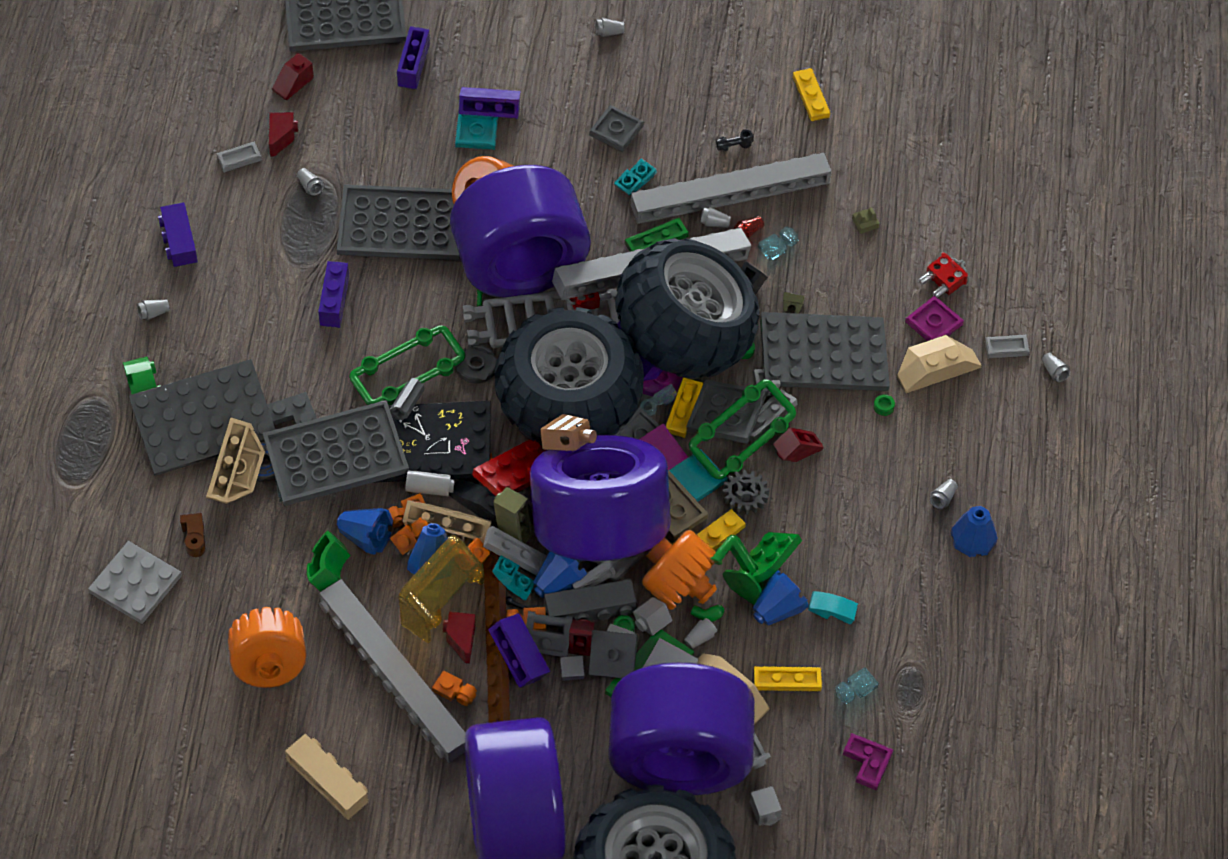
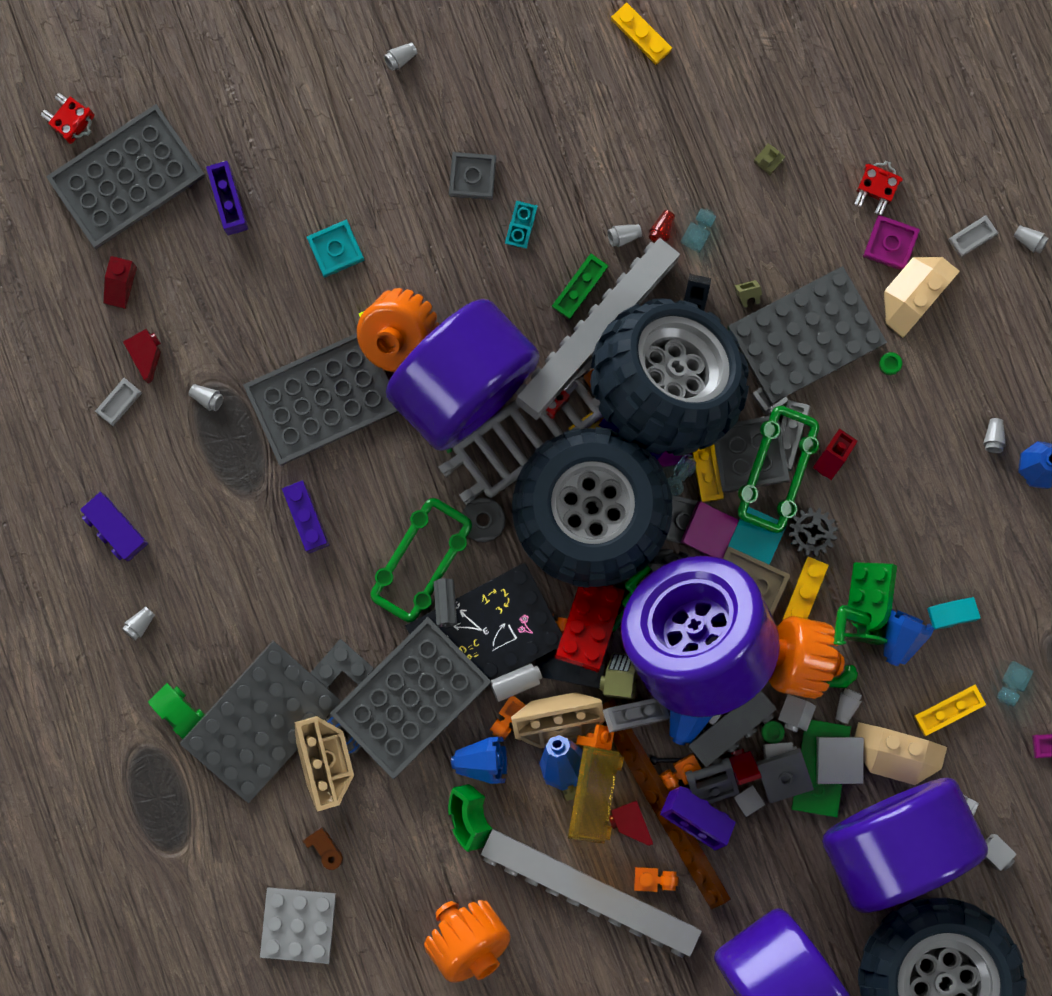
camera: 20 degrees left, 25 degrees up
(407, 537) = (528, 750): orange plate -> none
(489, 102) = (333, 212): dark purple brick -> none
(508, 575) = (649, 741): teal slope -> none
(567, 433) = (638, 590): medium nougat torso -> none
(730, 188) = (622, 190): light grey brick -> none
(745, 140) = (605, 125): black bar -> none

